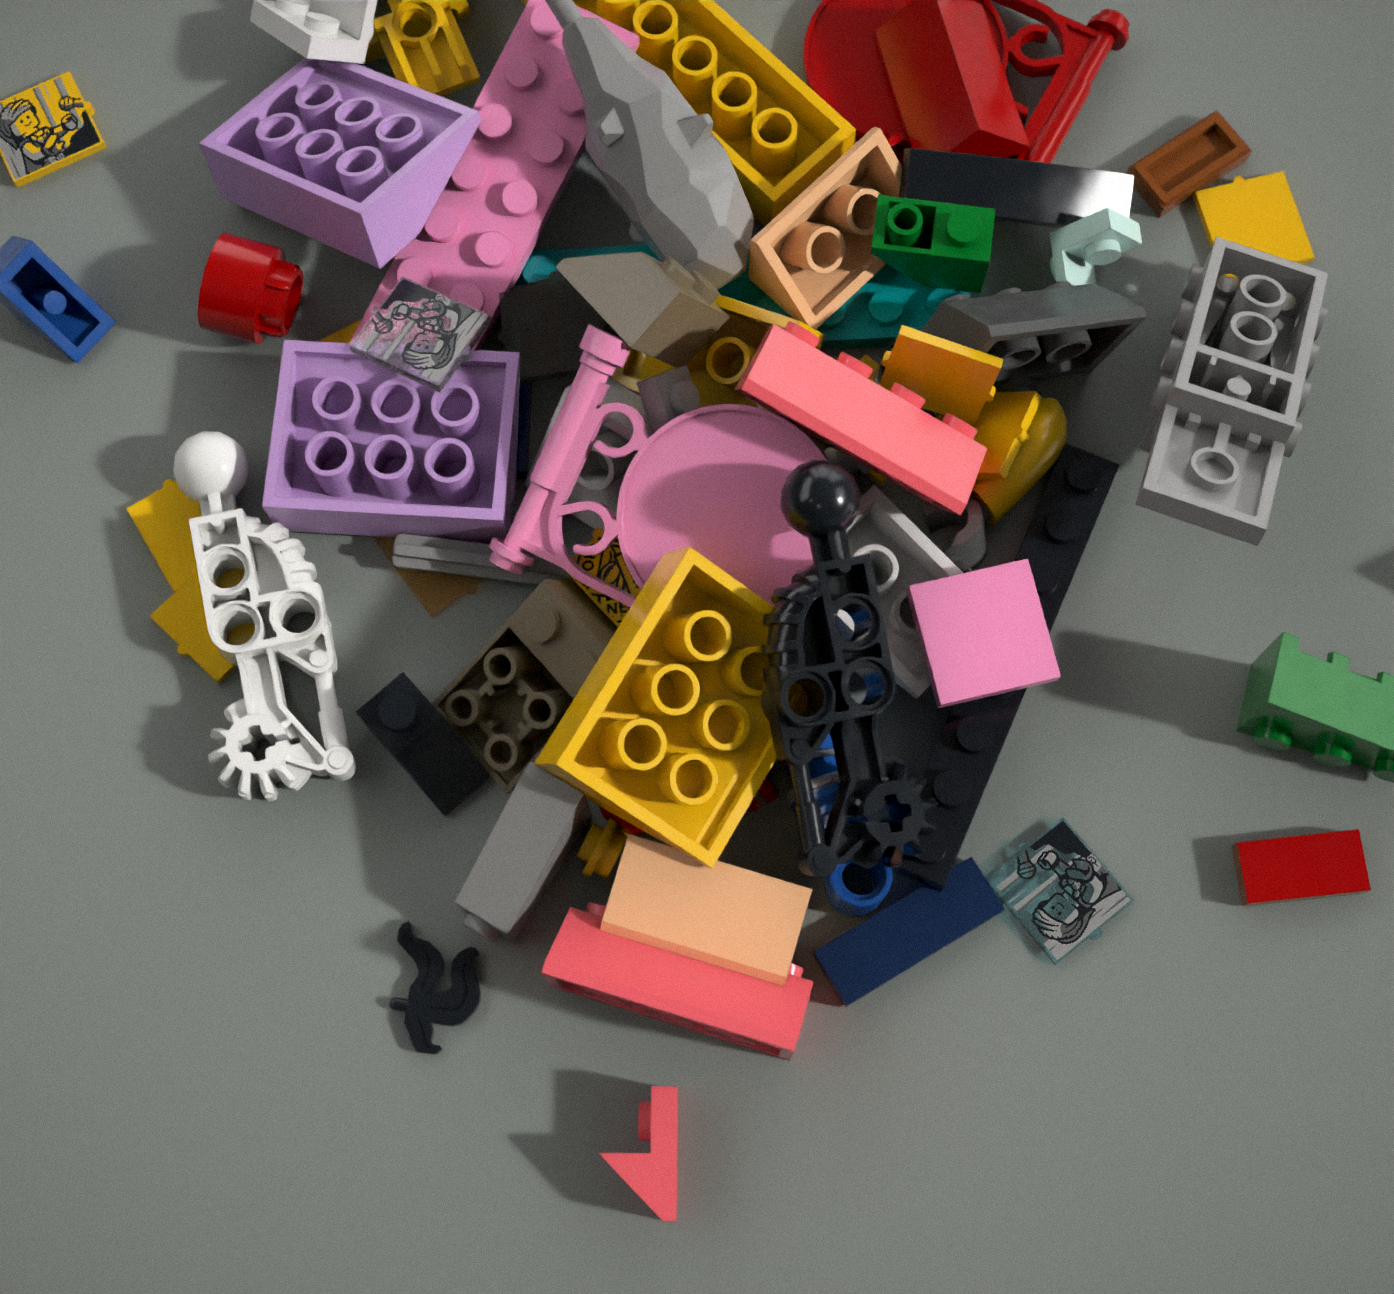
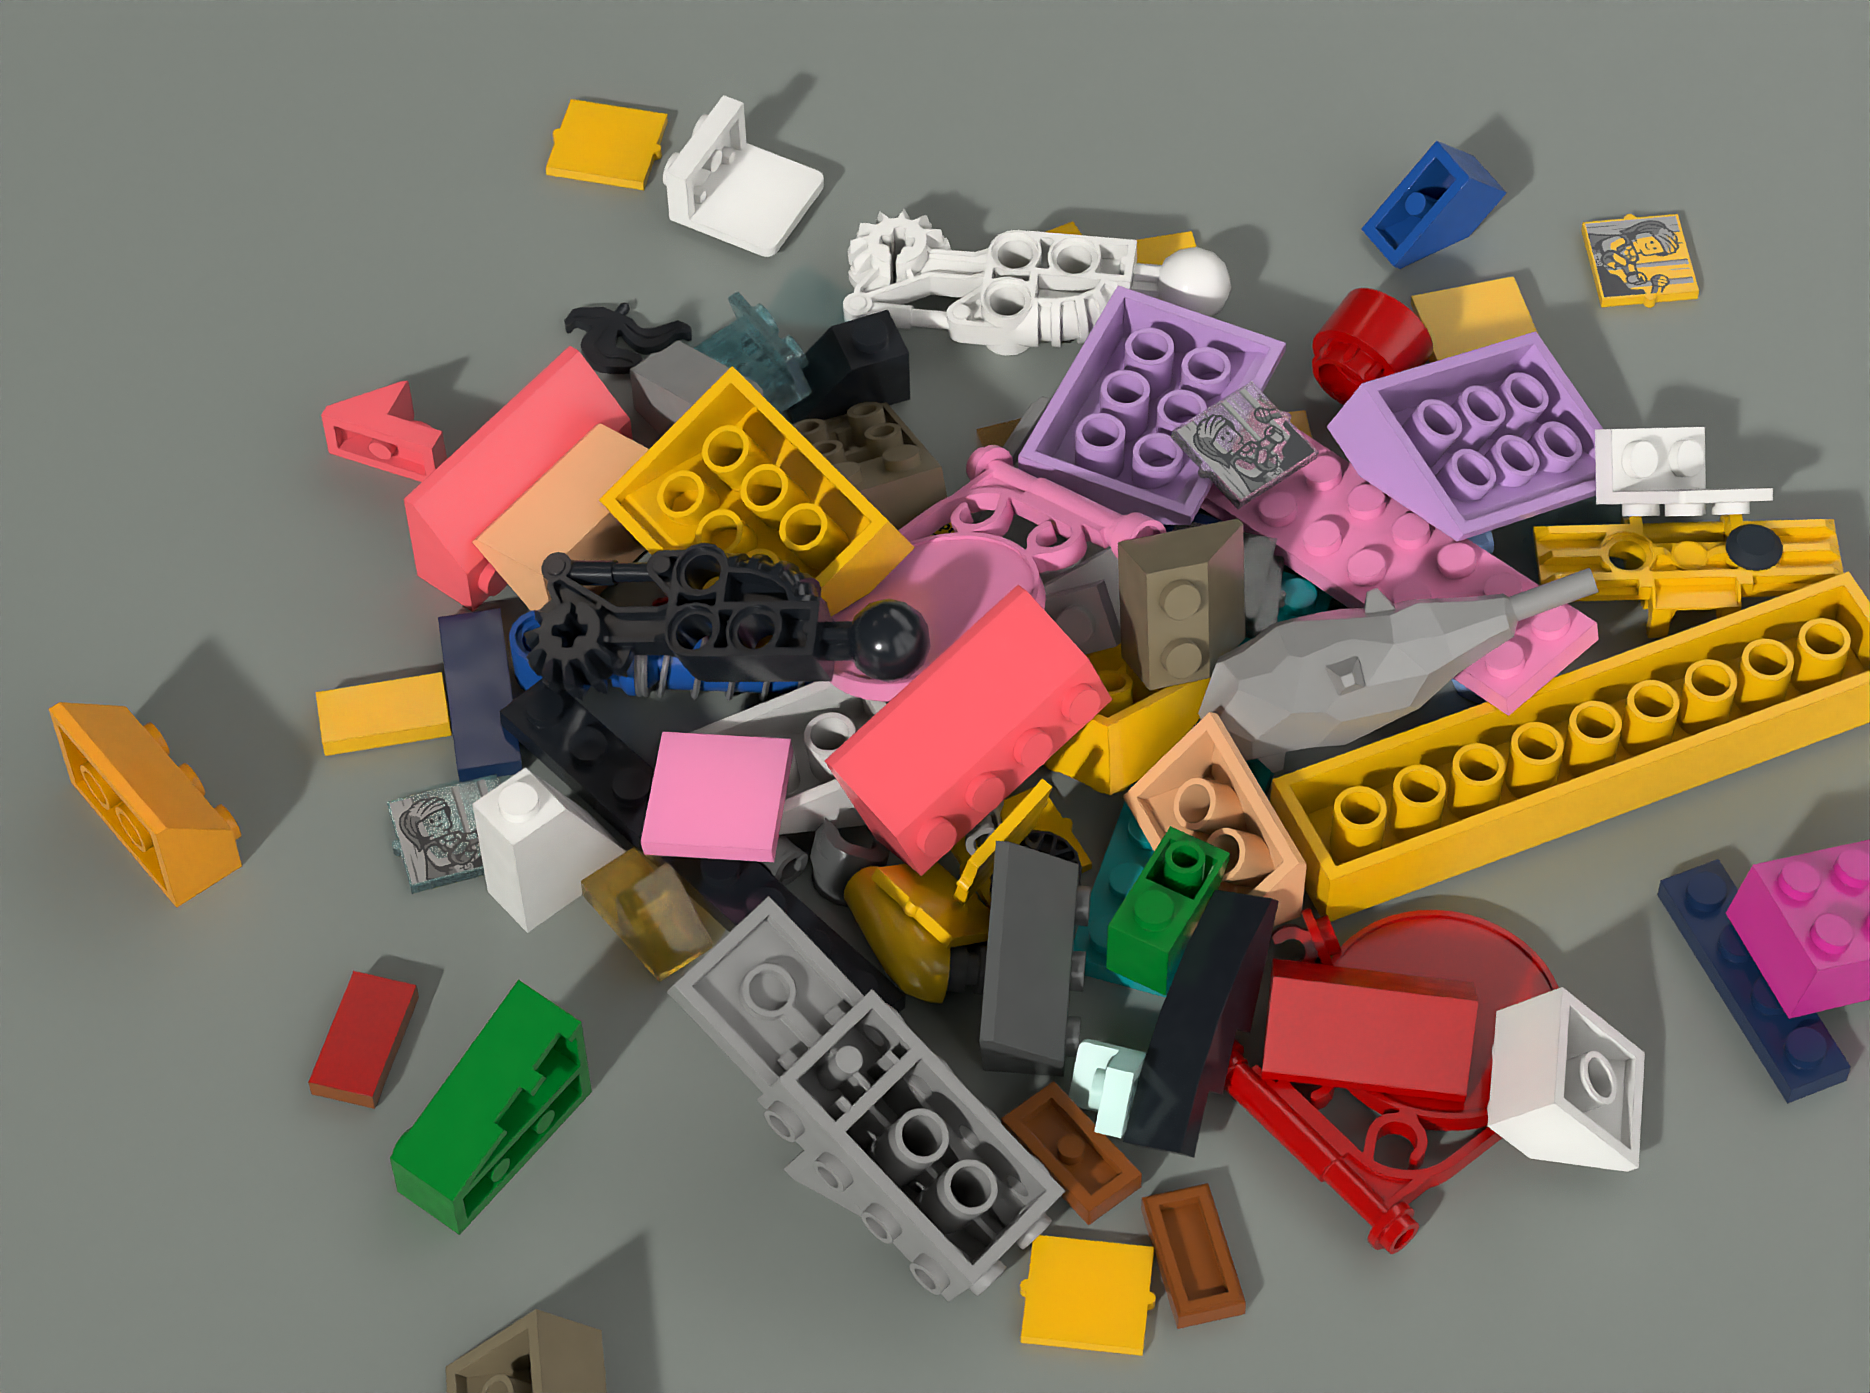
camera: 110 degrees right, 20 degrees down
(168, 230) = (1472, 316): none -> yellow piece
(180, 1117) = (607, 144): none -> yellow piece
(212, 939) = (735, 187): none -> white bracket
(445, 835) = (760, 354): none -> clear light blue bracket
(966, 1011) = (383, 714): none -> yellow tile
(1063, 707) = (648, 912): none -> clear yellow slope
(1075, 771) = (538, 847): none -> white slope
(1155, 266) = (1076, 1157): none -> dark orange plate
(1175, 1172) = (147, 798): none -> light orange slope

